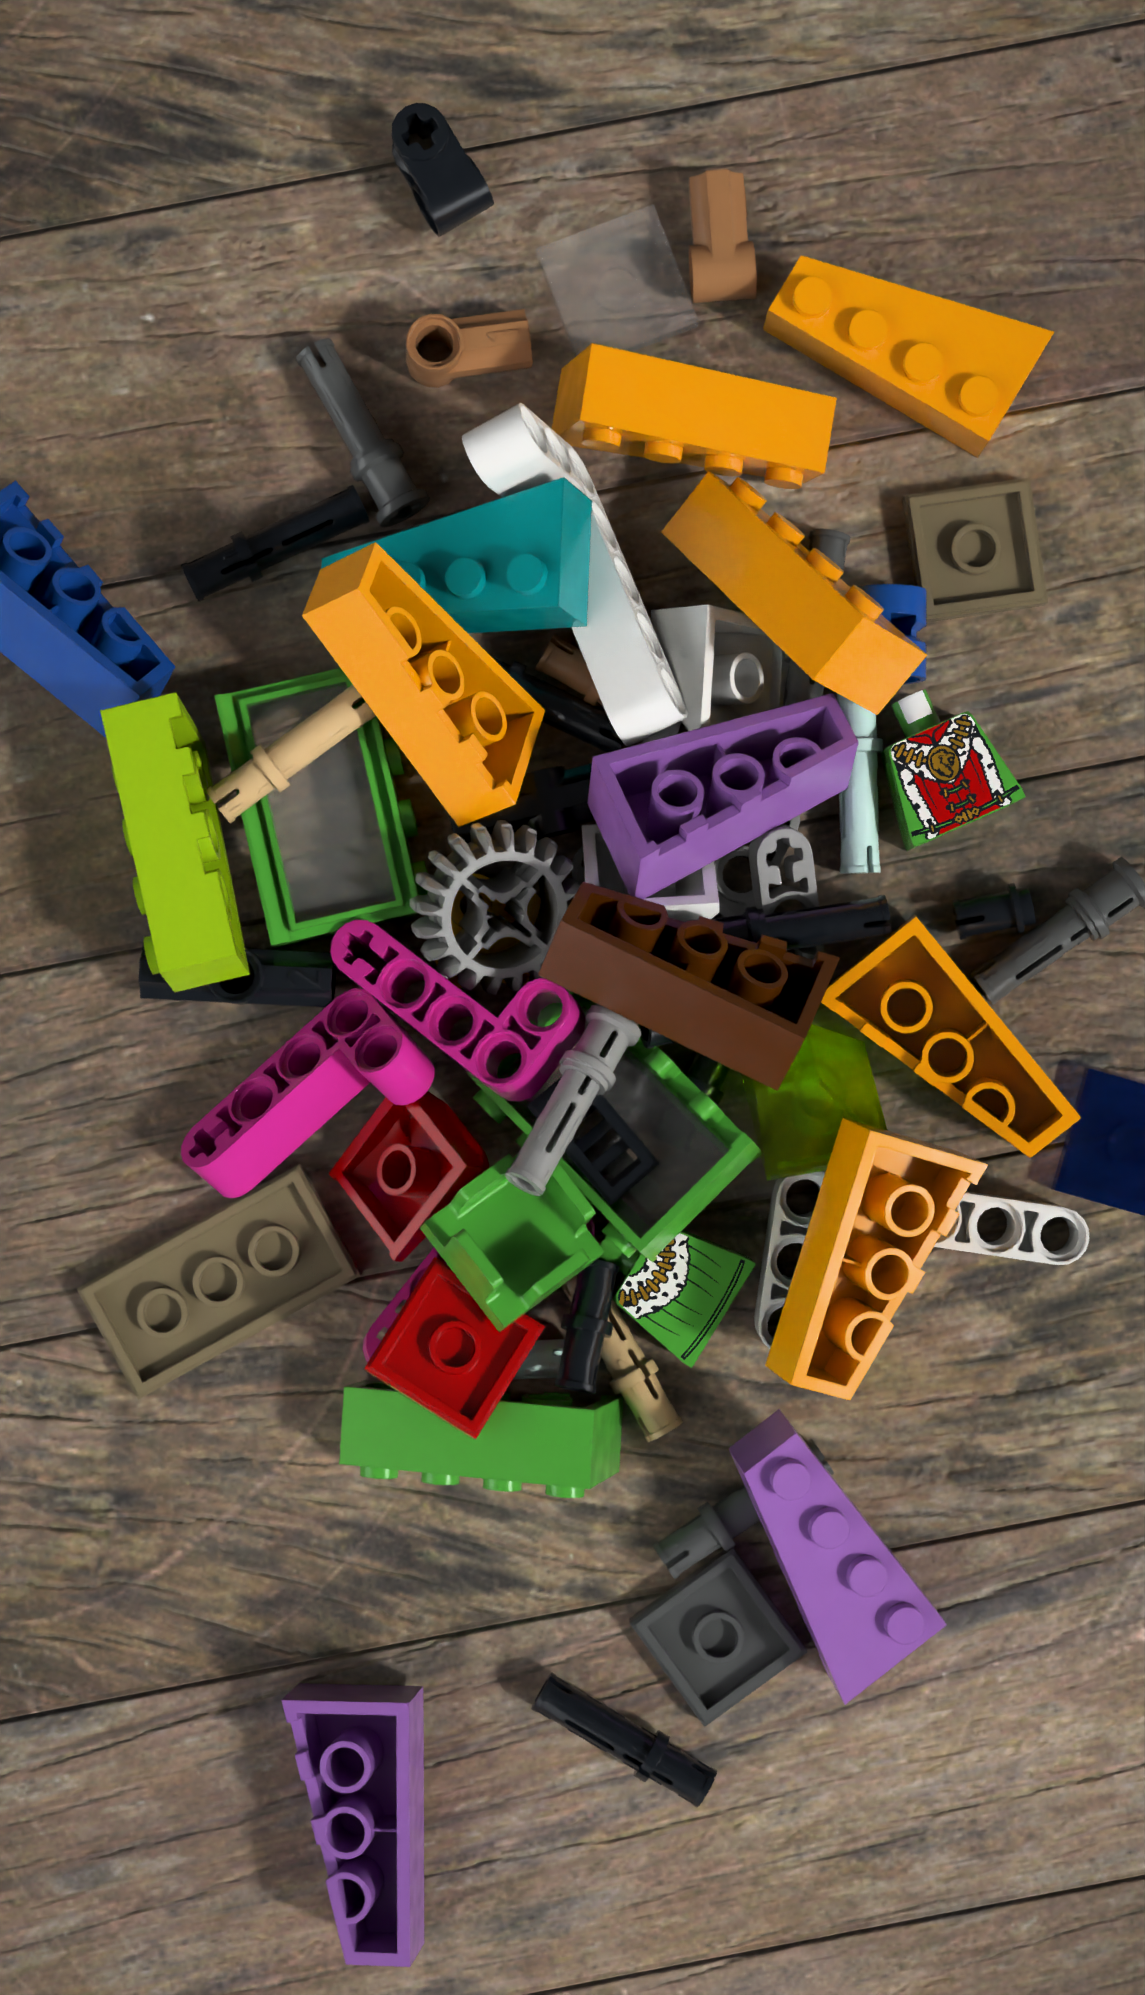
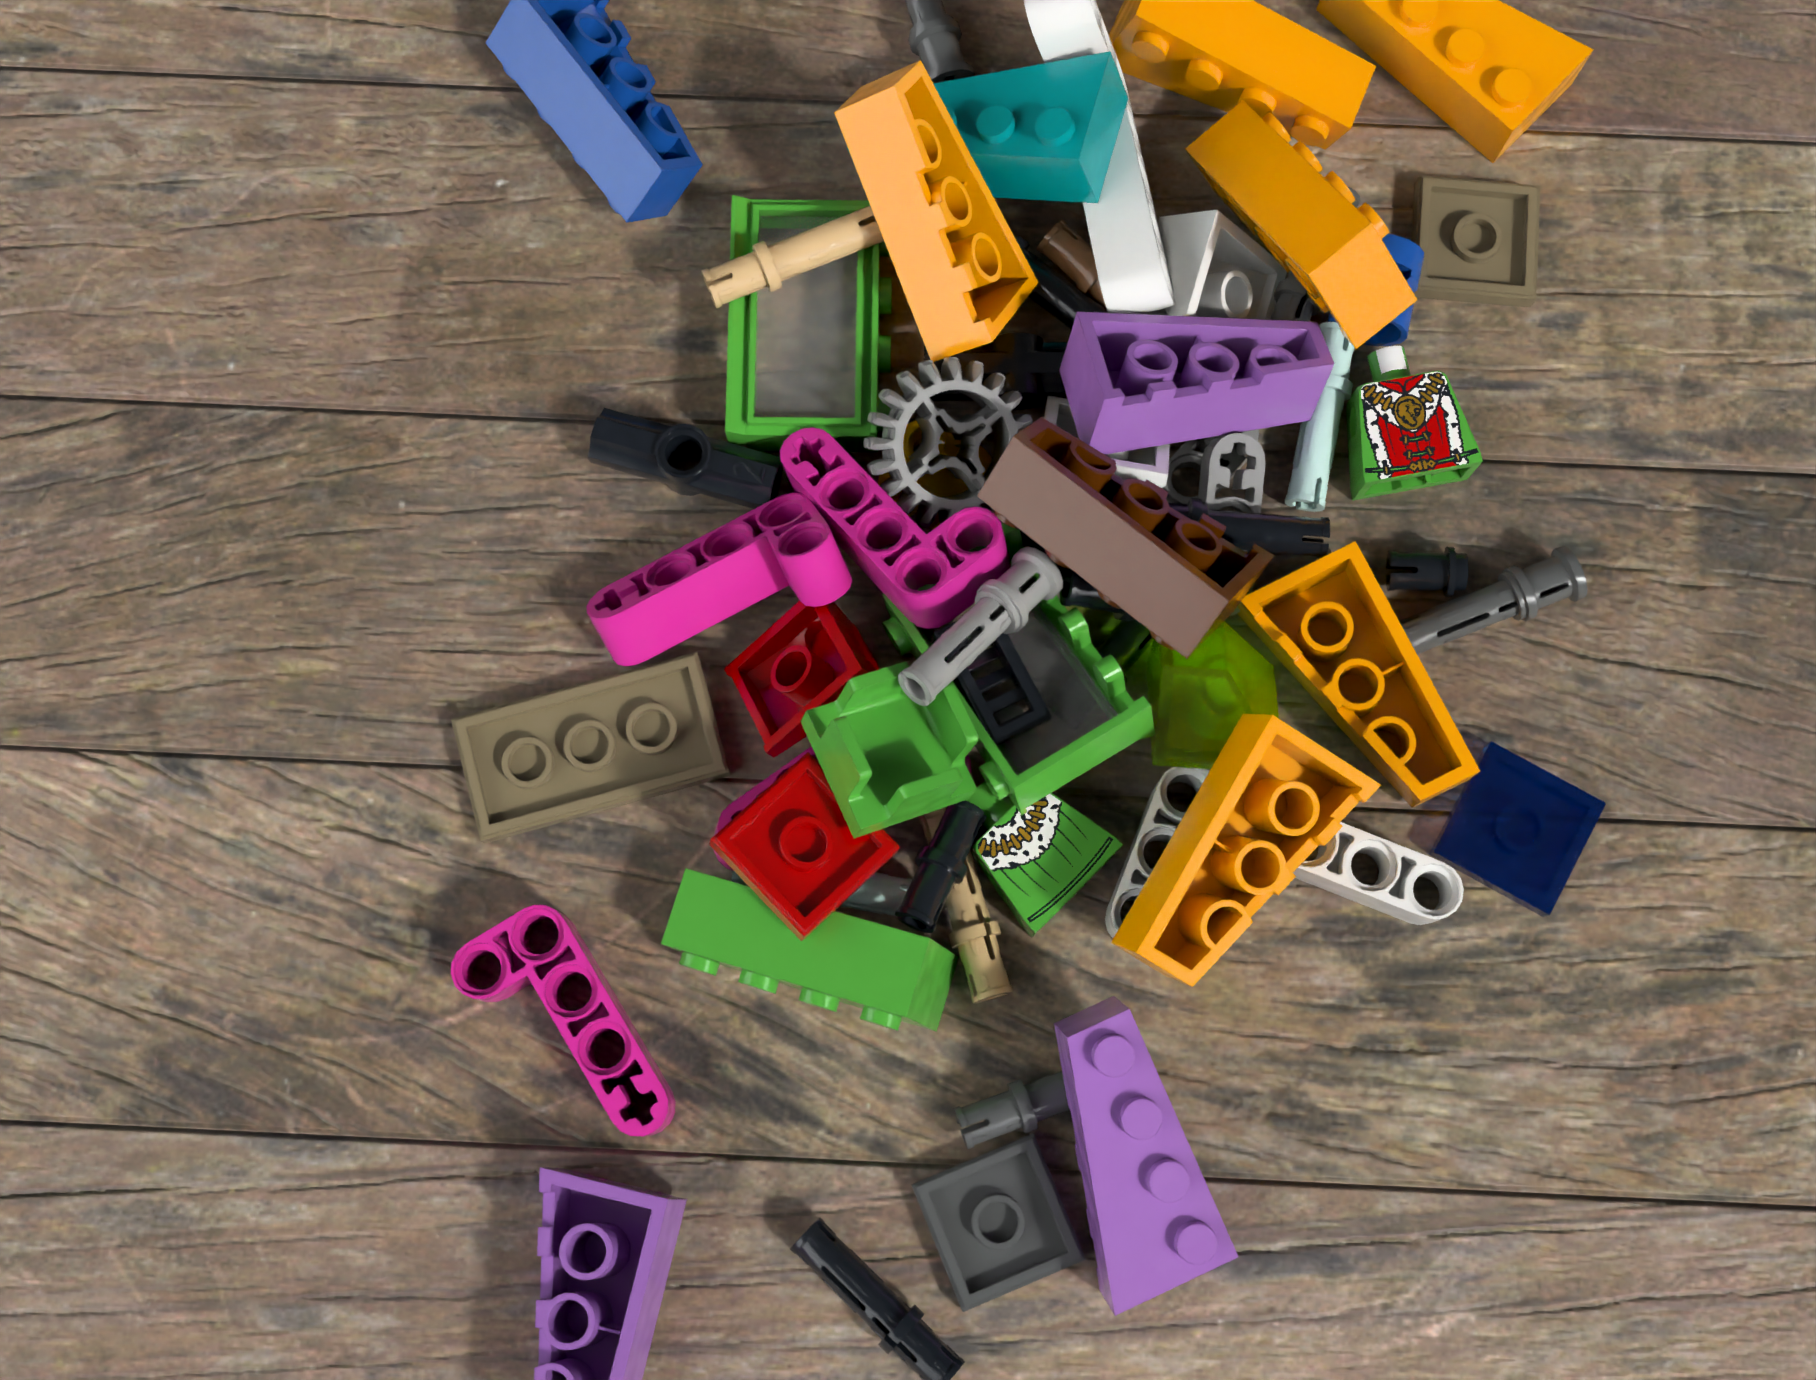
camera: 15 degrees right, 10 degrees down
(175, 843) = (659, 311): lime wedge -> none
(274, 543) = (752, 99): black pin -> none
(279, 1554) = (580, 1027): none -> dark pink beam

